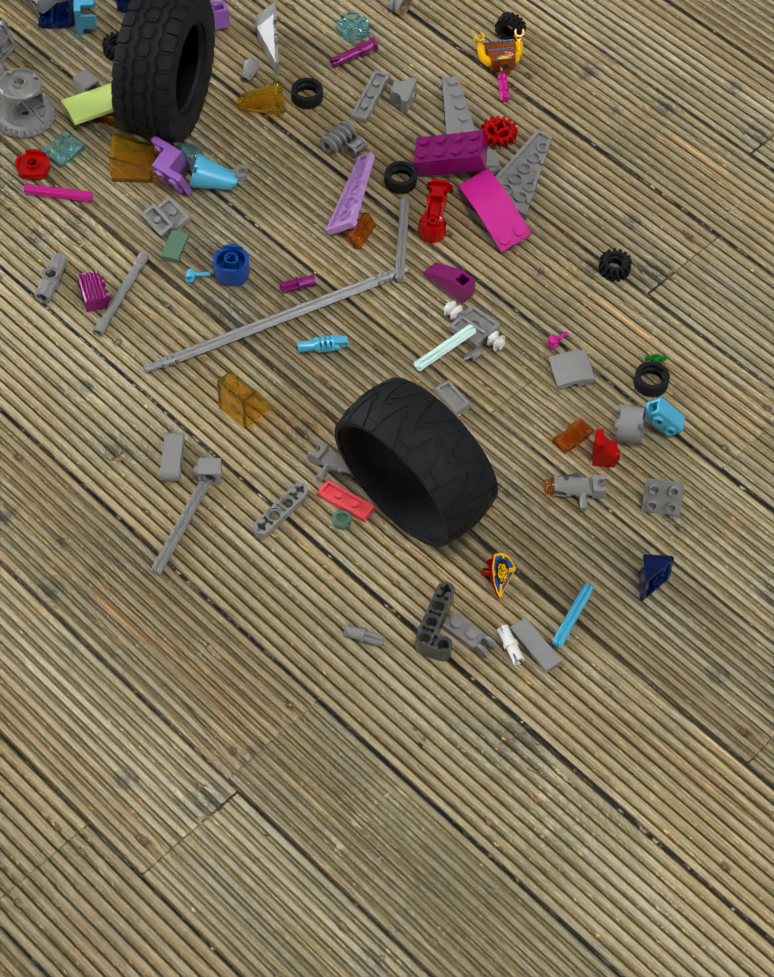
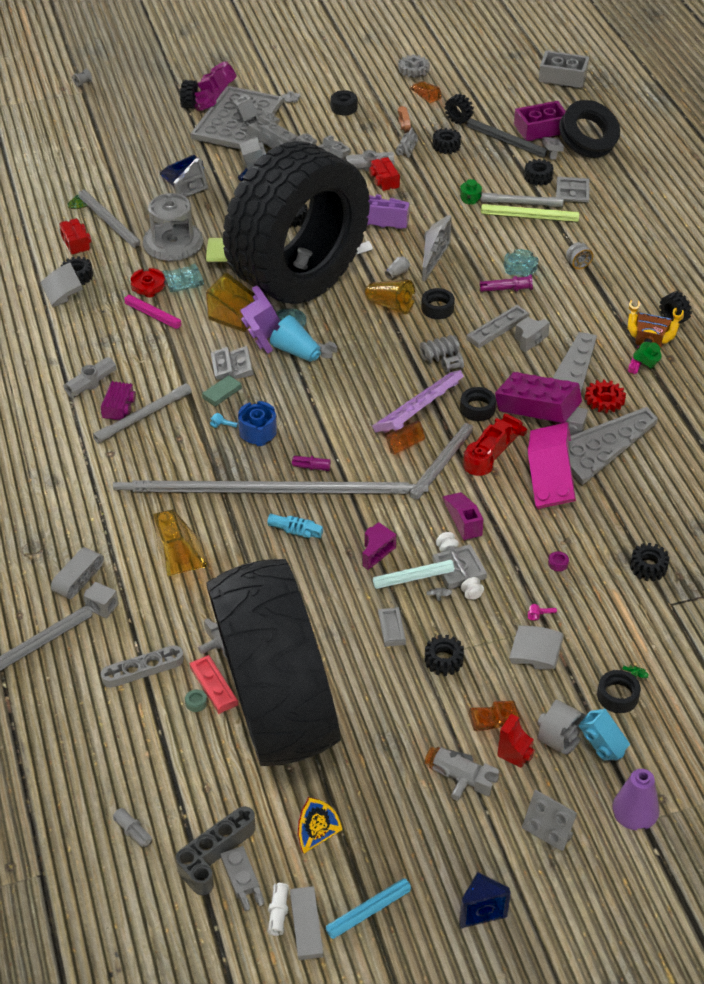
camera: 30 degrees right, 10 degrees down
(399, 333) = (378, 544): none -> magenta arch
(508, 412) = (444, 664): none -> black tyre
(512, 79) = (648, 354): none -> green piece
(545, 291) = (558, 561): none -> magenta tile
(713, 456) = (637, 801): none -> medium lavender cone

